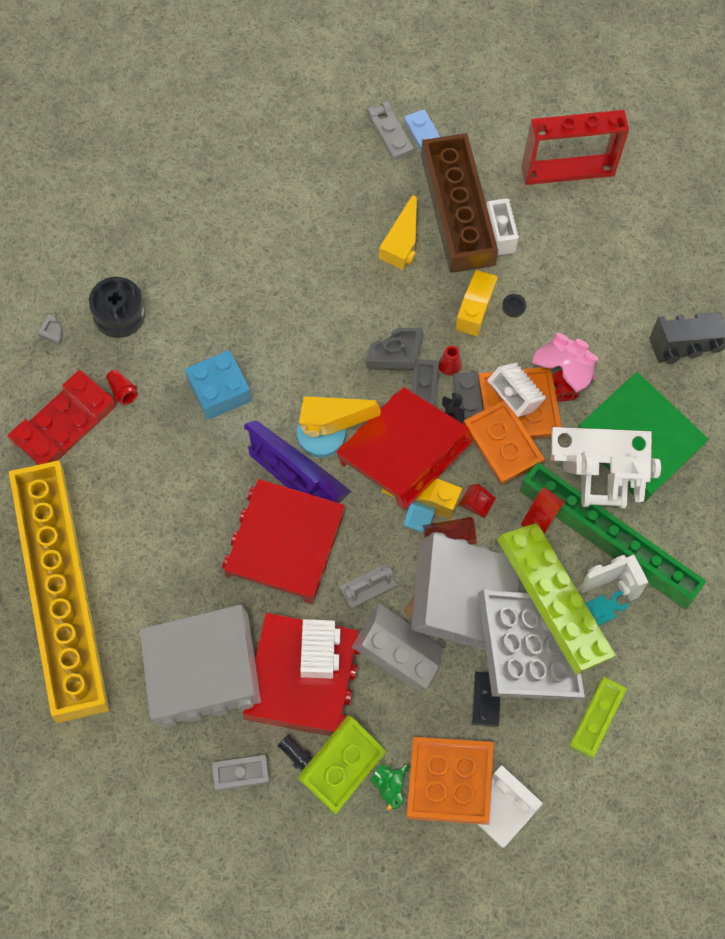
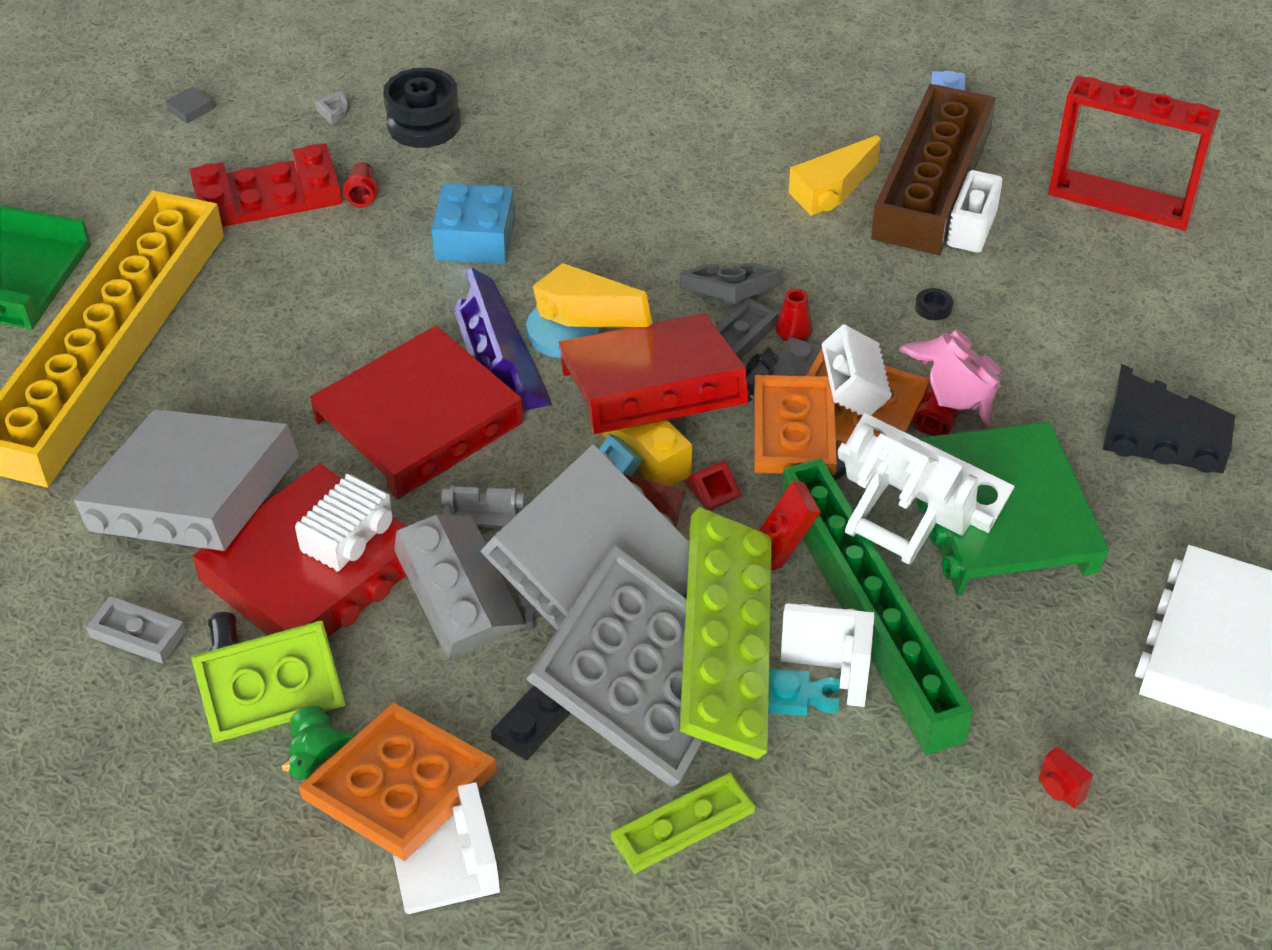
camera: 35 degrees right, 20 degrees down
(390, 131) = (903, 79): light grey plate -> none
(475, 303) = (875, 278): yellow slope -> none

